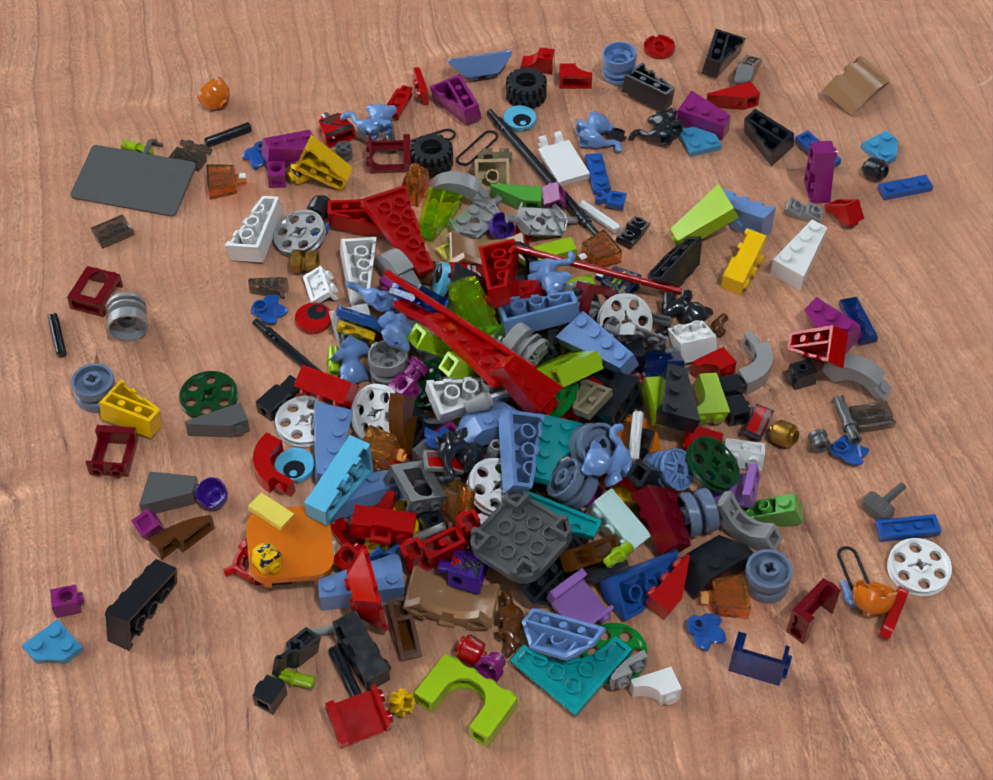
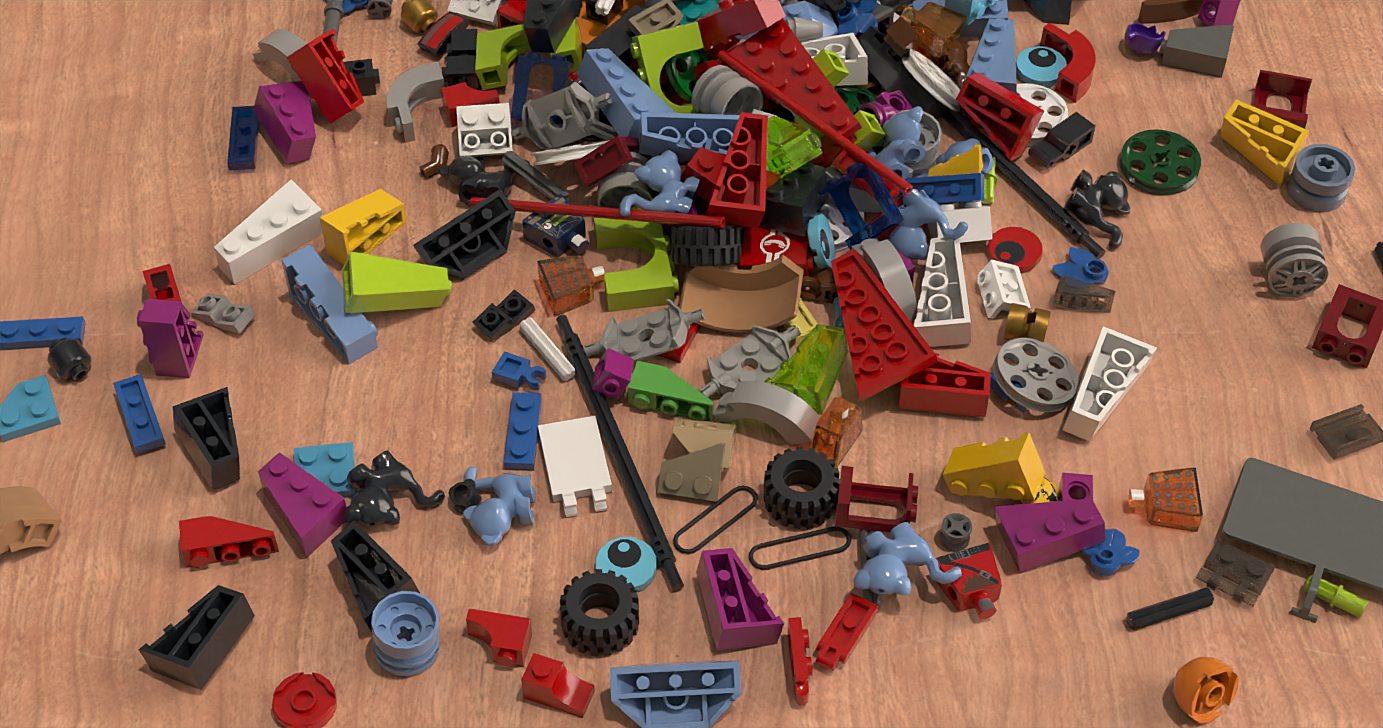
camera: 170 degrees left, 0 degrees up
(220, 423) = (1130, 116): dark grey slope -> none
(250, 356) = (1089, 199): none -> black animal
(319, 204) = (1002, 419): black head -> none
(499, 227) = (712, 341): dark purple hair -> none
(747, 69) = (165, 601): dark grey slope -> none
(872, 416) = (301, 21): clear smoke plate -> none

